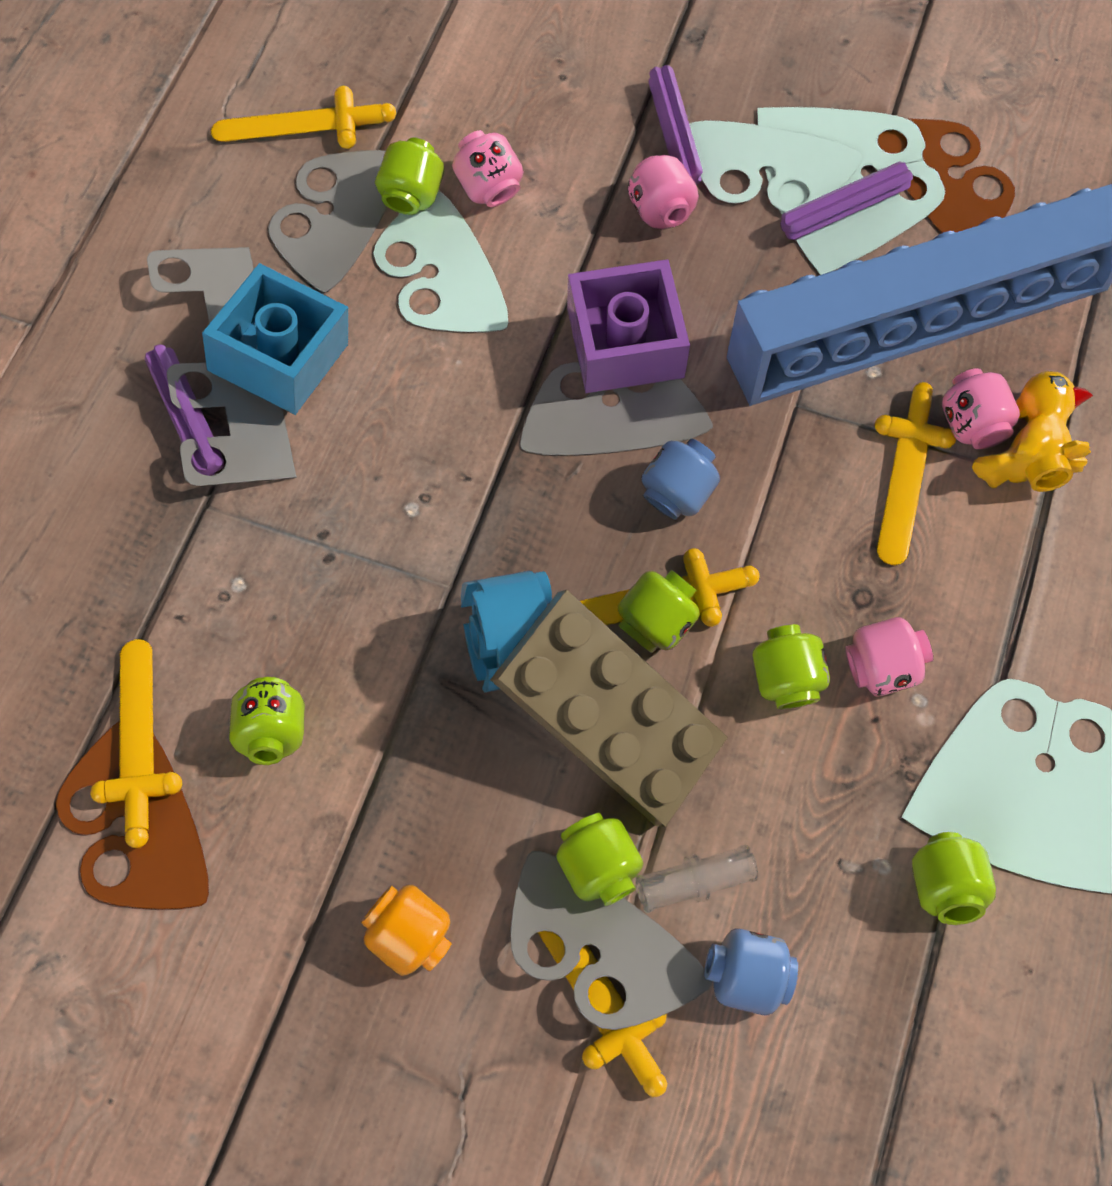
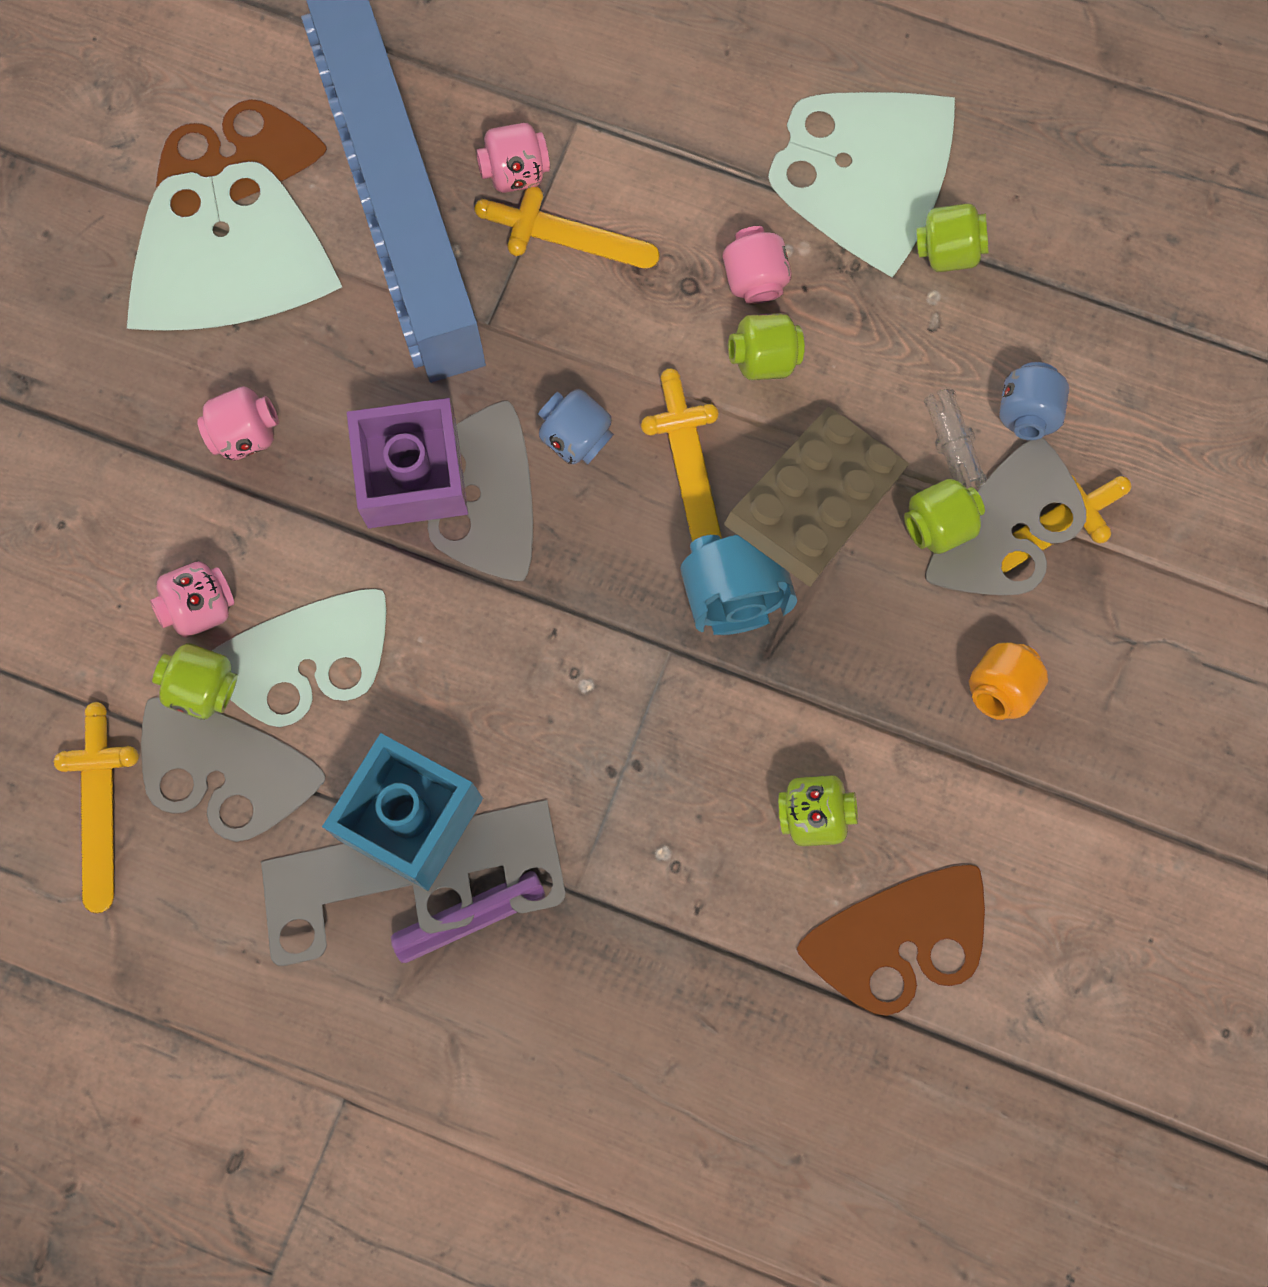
camera: 90 degrees left, 10 degrees up
(136, 765) = (830, 940): yellow sword -> none
(658, 610) = (713, 453): lime head -> none
(674, 120) = (141, 409): medium lavender axle -> none
(794, 156) = (178, 340): light aqua piece -> none
(846, 200) = (261, 251): medium lavender axle -> none
(1044, 445) = (552, 109): yellow animal -> none

